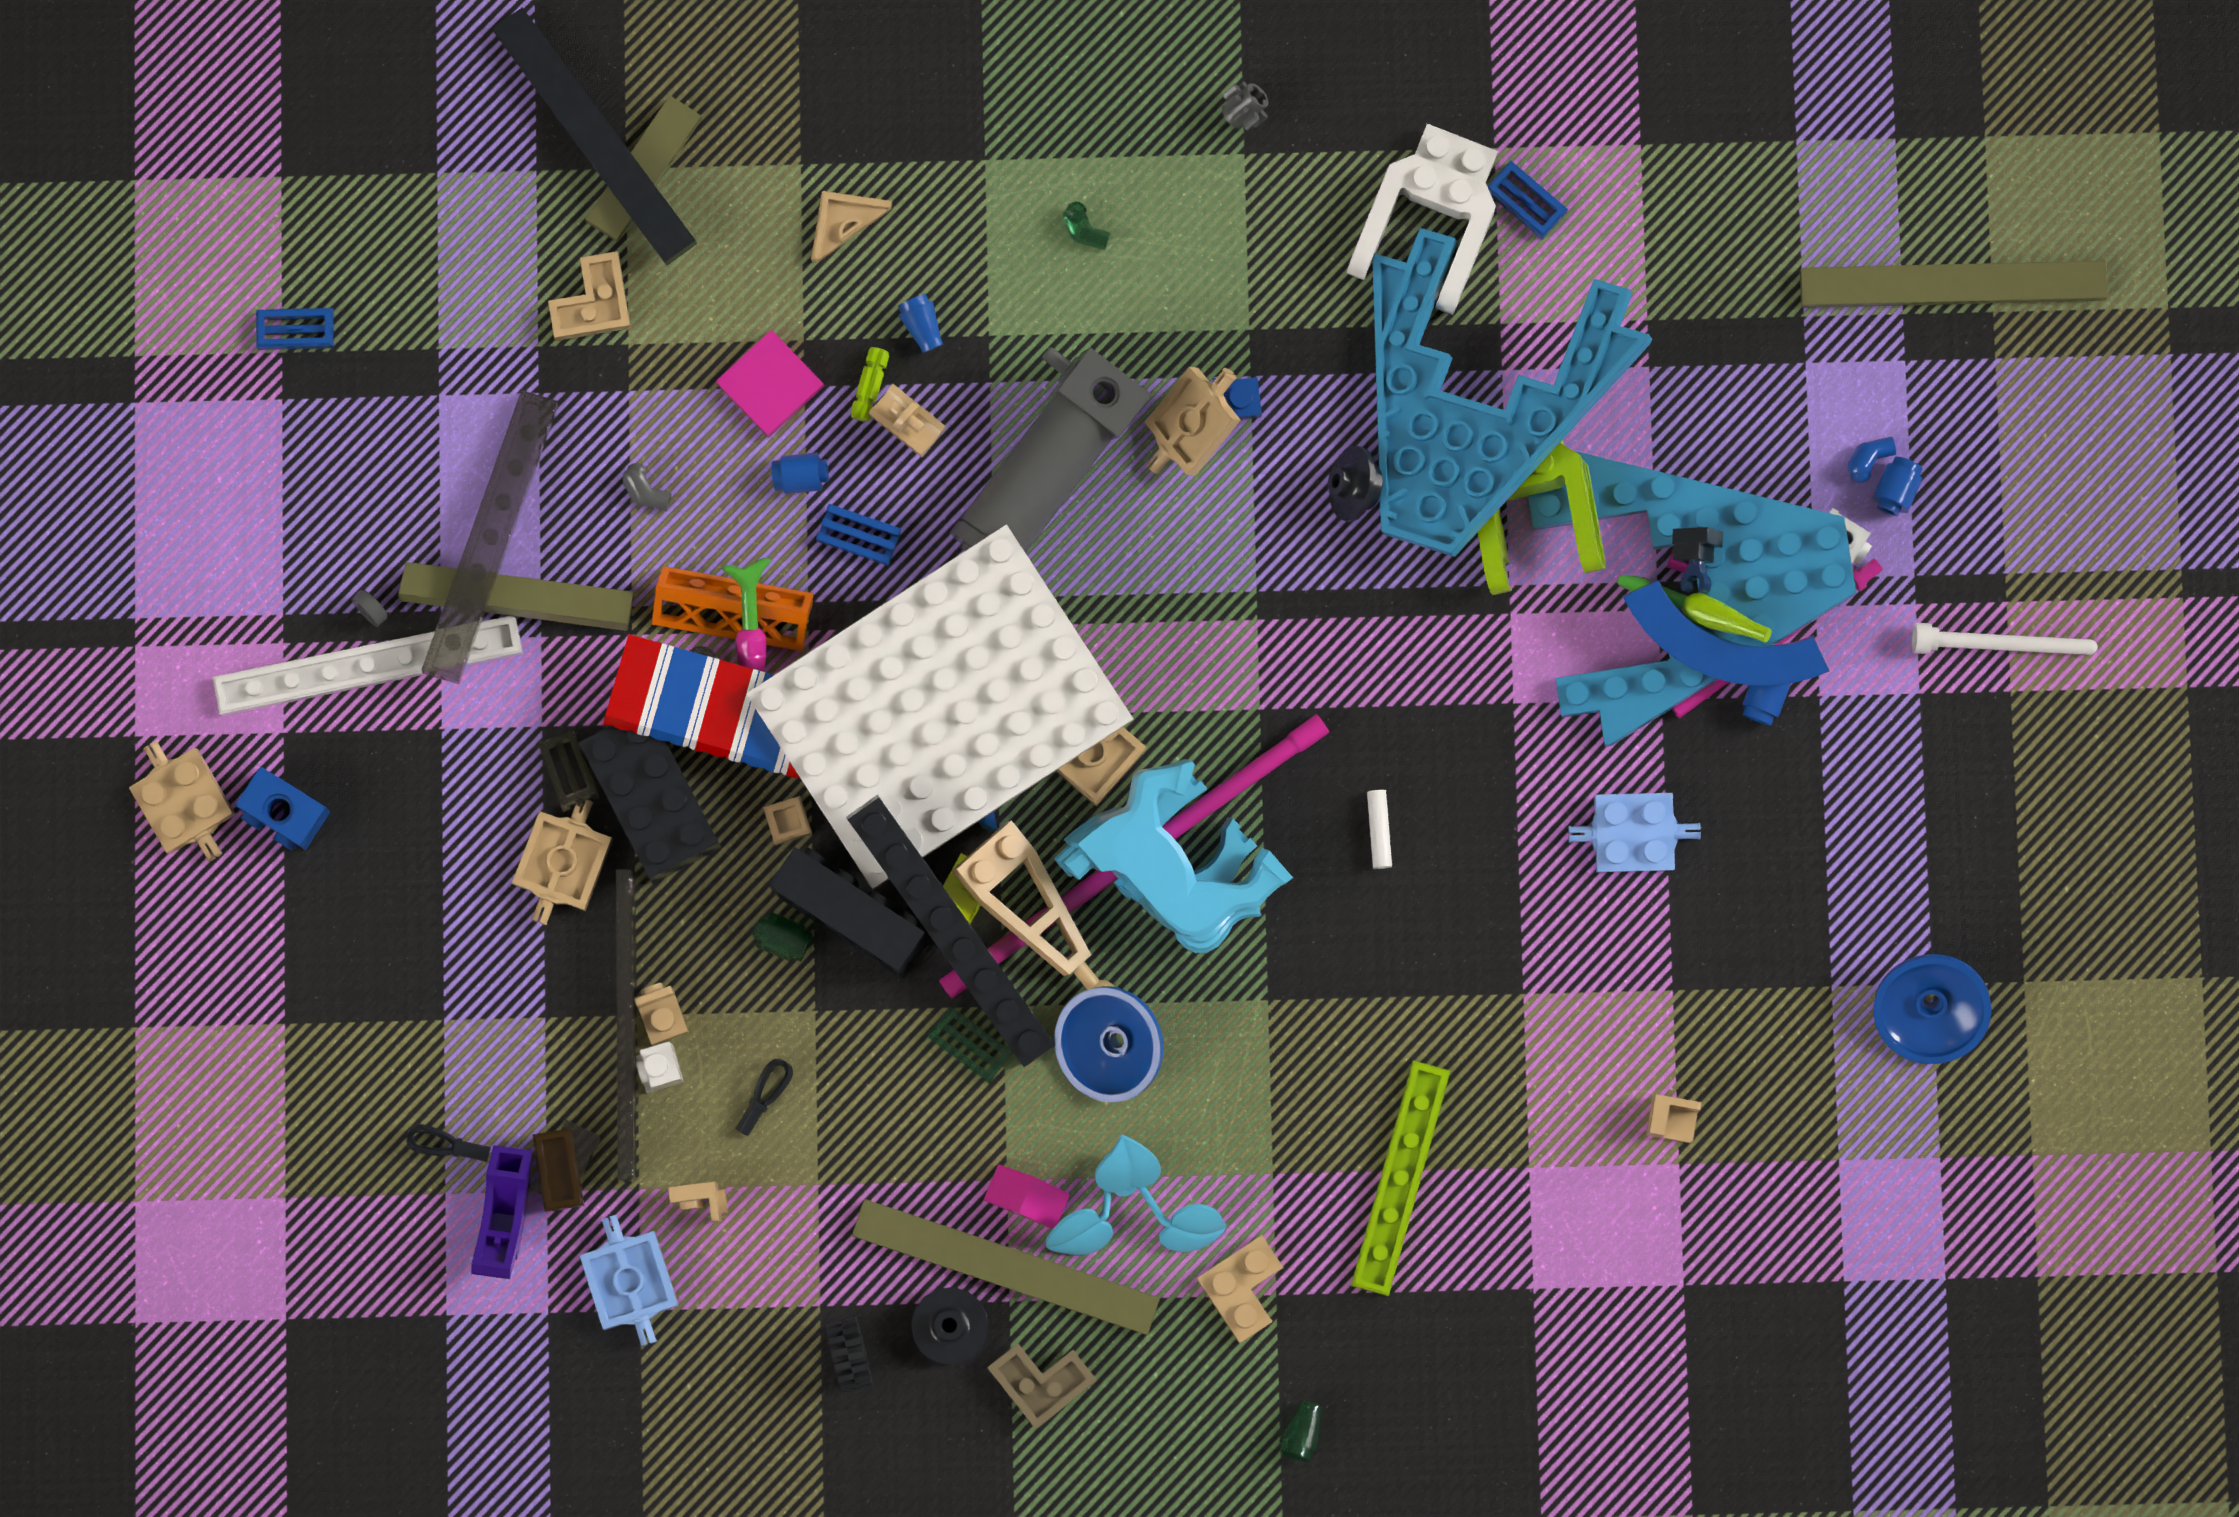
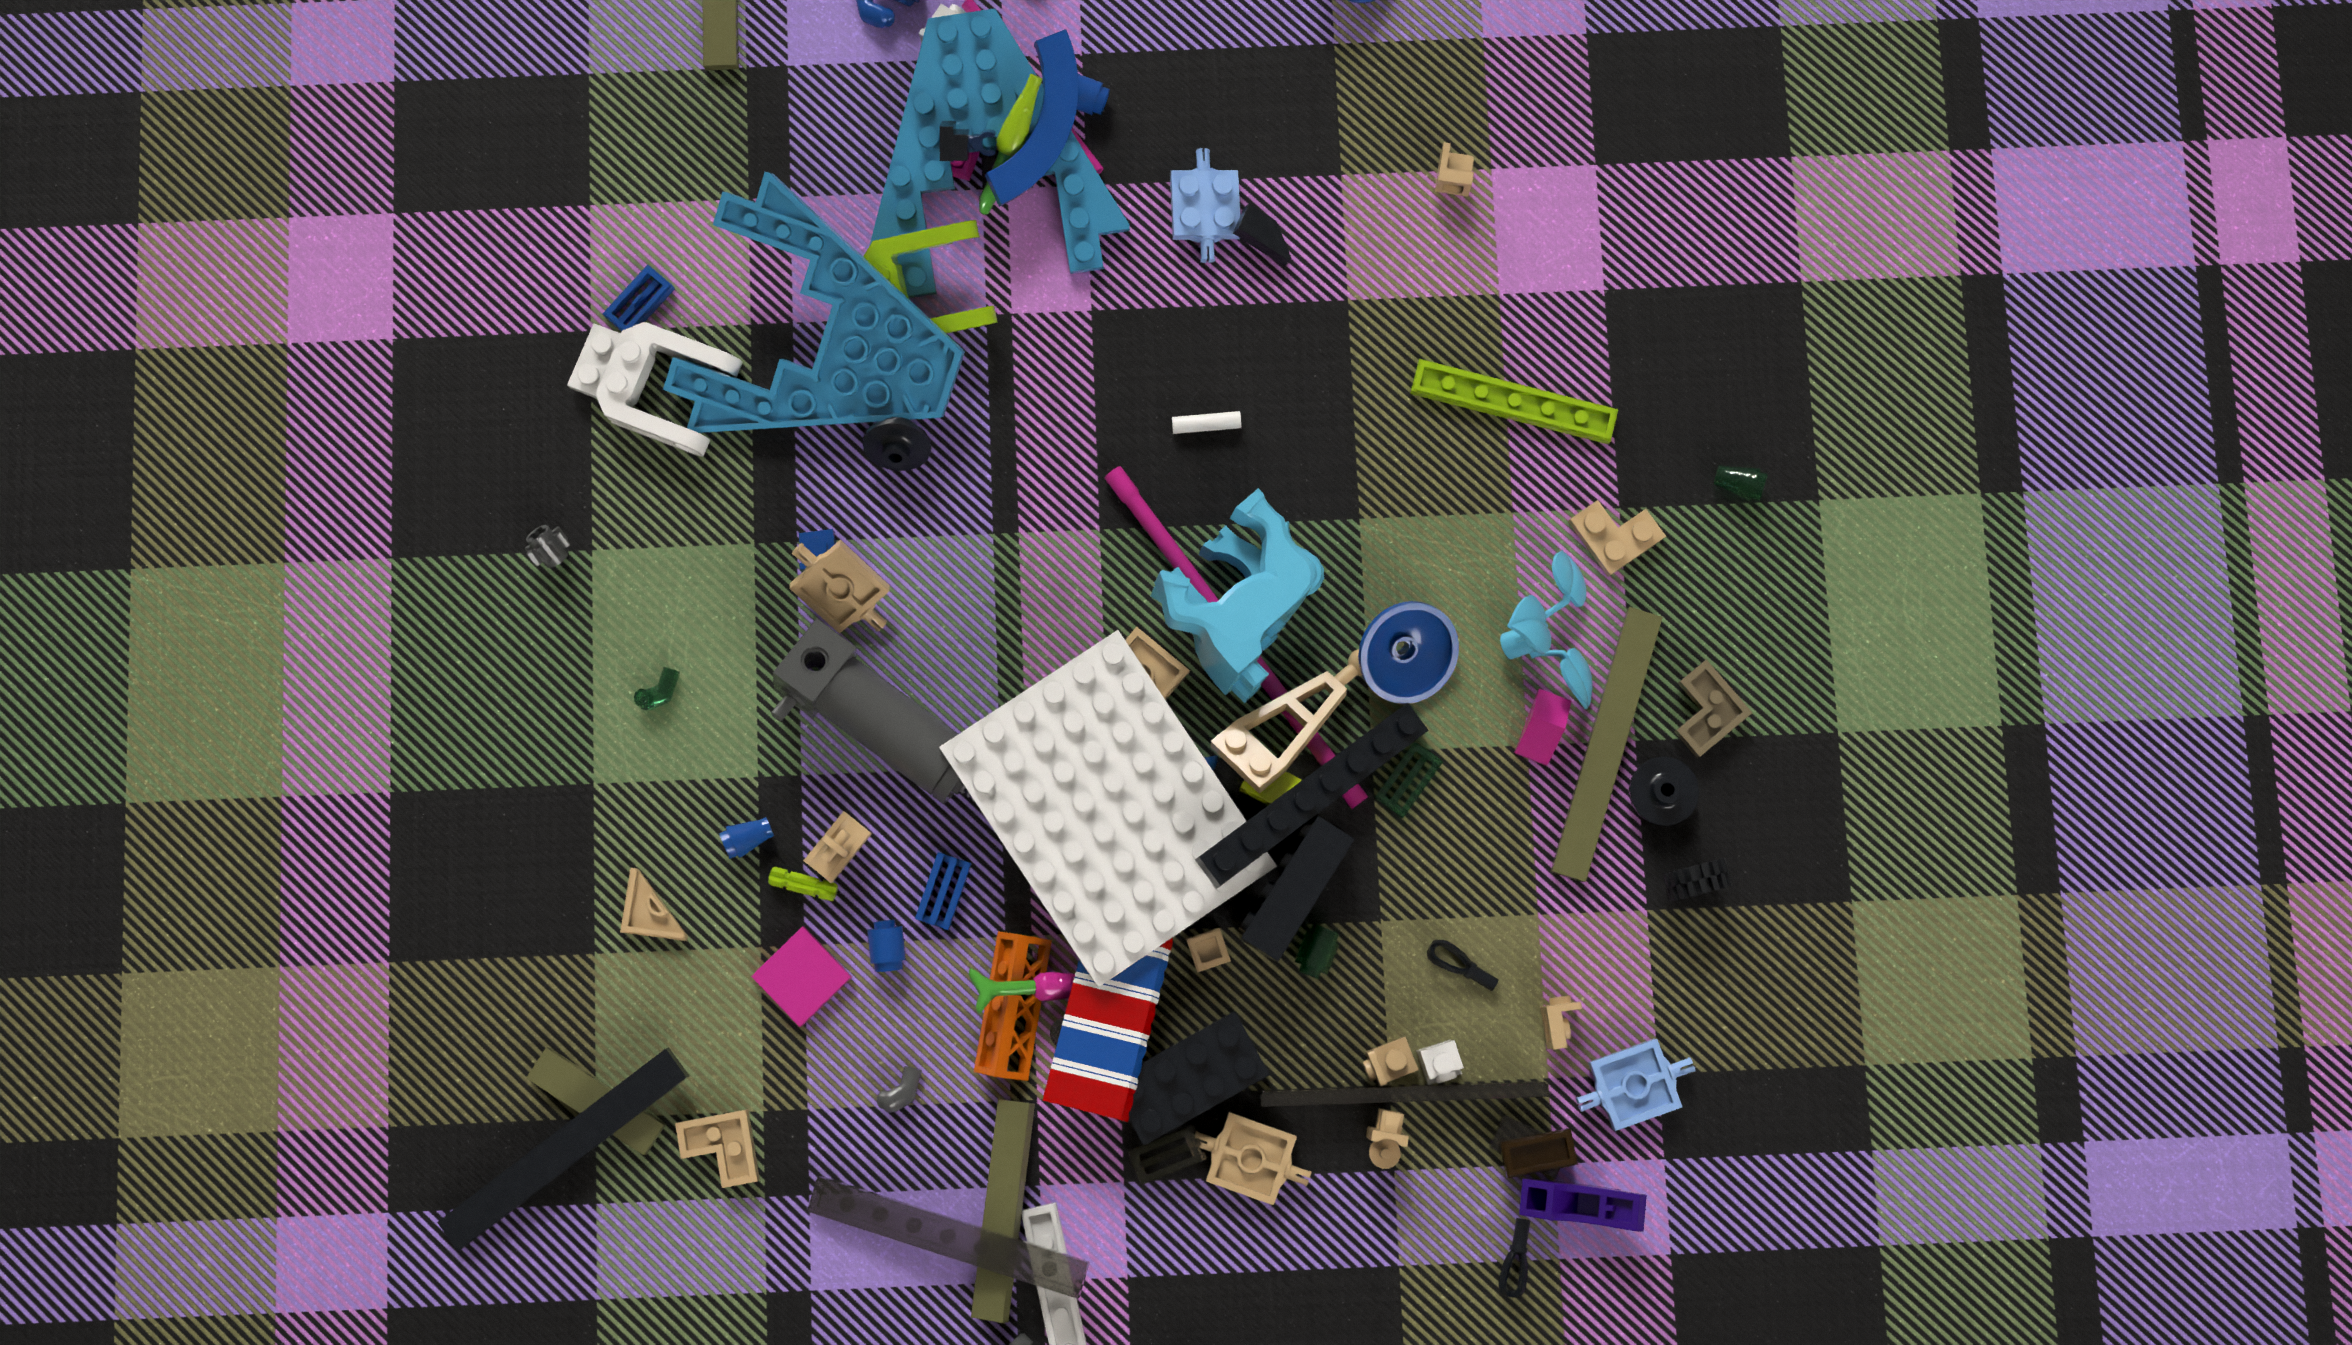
camera: 90 degrees left, 0 degrees up
(578, 1004) = (1386, 1138): none -> tan hips
(1598, 895) = (1263, 234): none -> black tile

